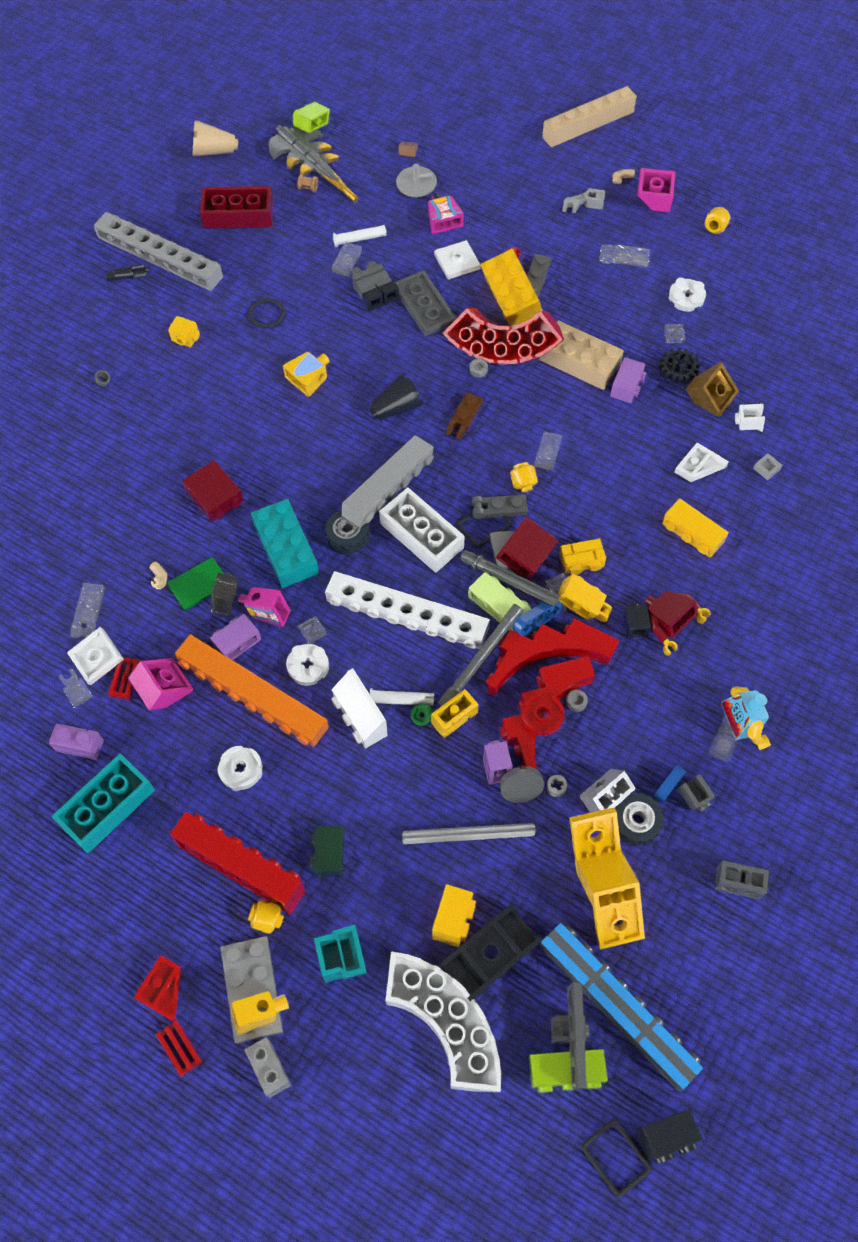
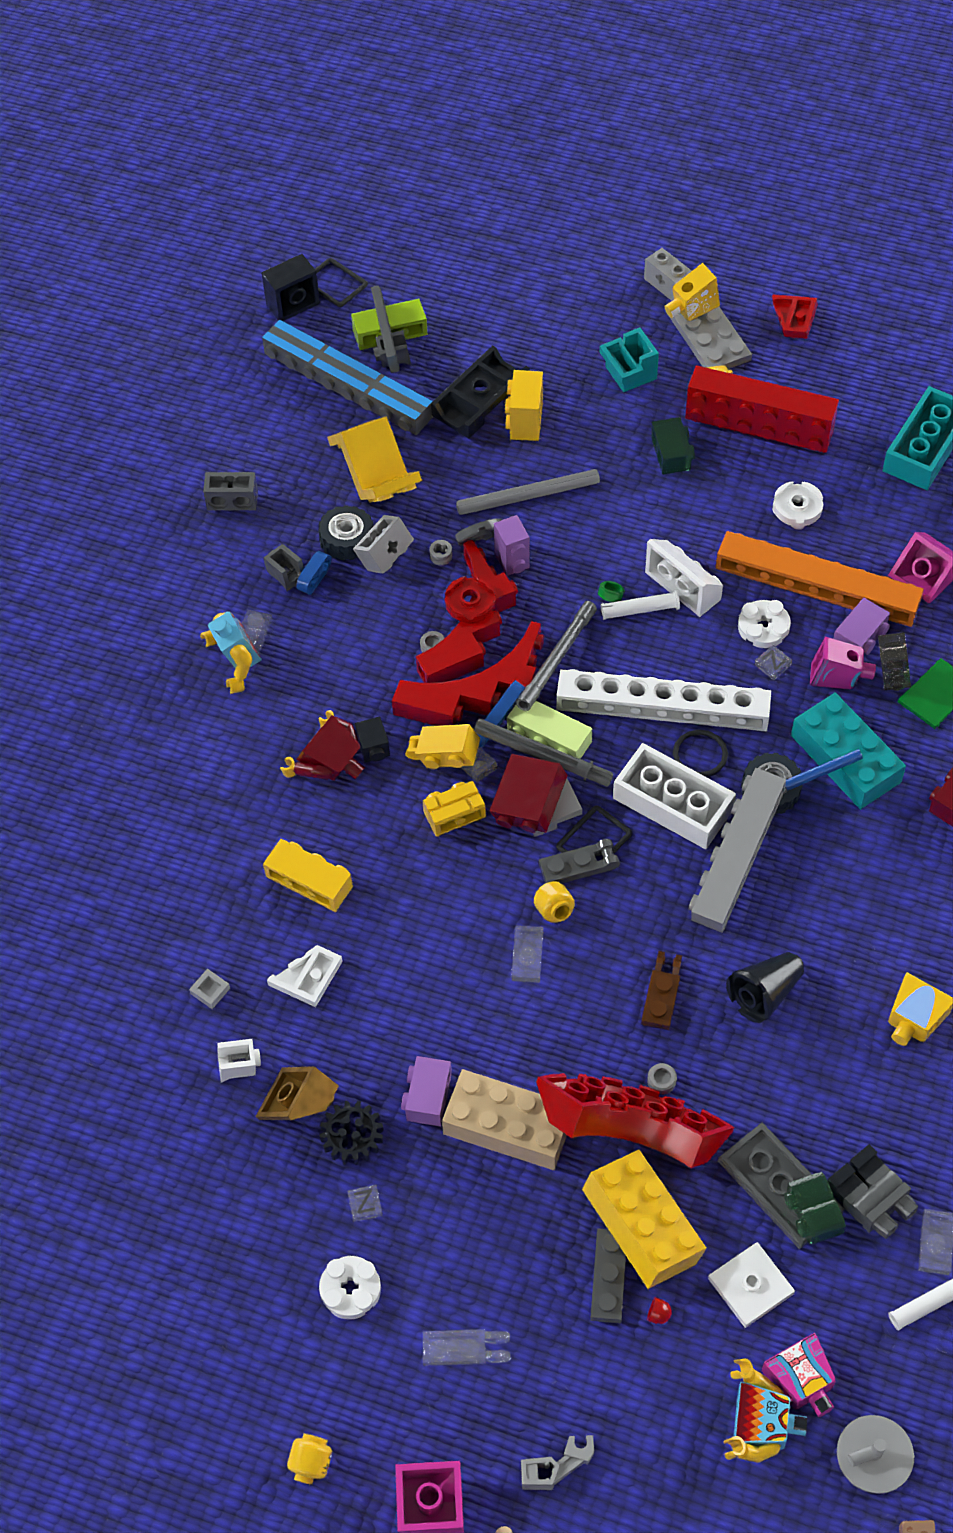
camera: 170 degrees right, 5 degrees down
(168, 1030) = (761, 279): red tile -> none
(311, 516) = (823, 769): none -> blue bar
(390, 555) = (706, 733): none -> black piece
(411, 277) = (815, 1208): none -> clear green brick
(453, 1018) = (492, 324): white brick -> none
(454, 713) = (573, 590): yellow brick -> none
(474, 195) = (761, 1417): none -> torso

